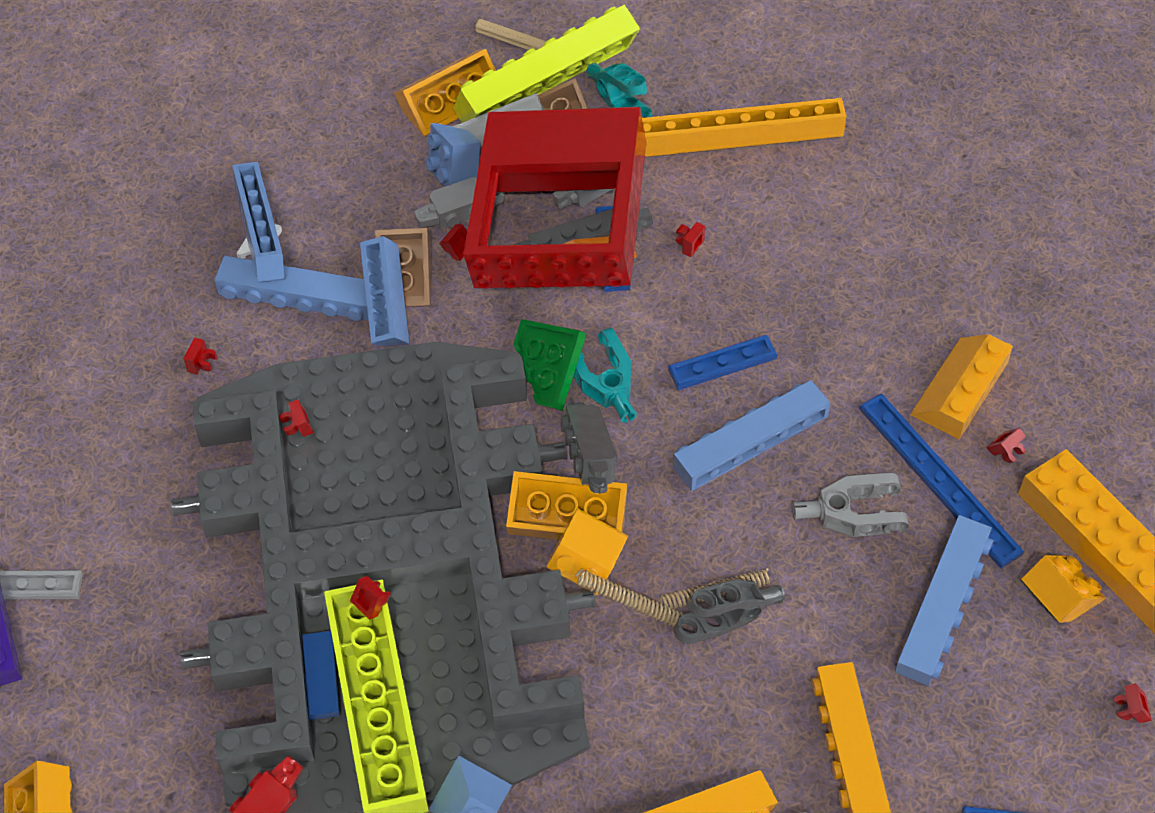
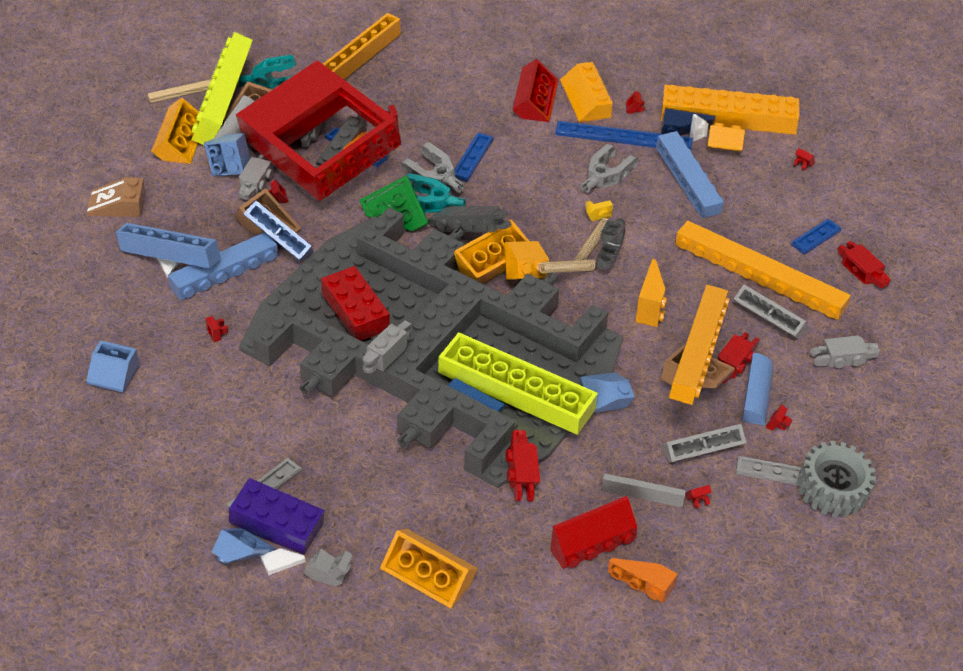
camera: 50 degrees left, 10 degrees down
(56, 320) = (112, 366): none -> medium blue slope
(279, 532) = (386, 347): none -> light grey hinge
(299, 419) = (314, 309): red tile -> none
(301, 127) = (118, 198): none -> medium nougat slope
(345, 447) = (355, 303): none -> red brick
(369, 597) = (467, 338): red tile -> none
(650, 358) = (442, 171): none -> light grey piece
(671, 726) = (651, 298): none -> light orange slope
(750, 435) = (526, 173): medium blue brick -> none
(771, 556) = (599, 210): none -> yellow plate
(900, 335) = (535, 92): none -> red slope
(1031, 520) = (681, 121): none -> dark blue slope
(1040, 543) = (698, 128): none -> white tile

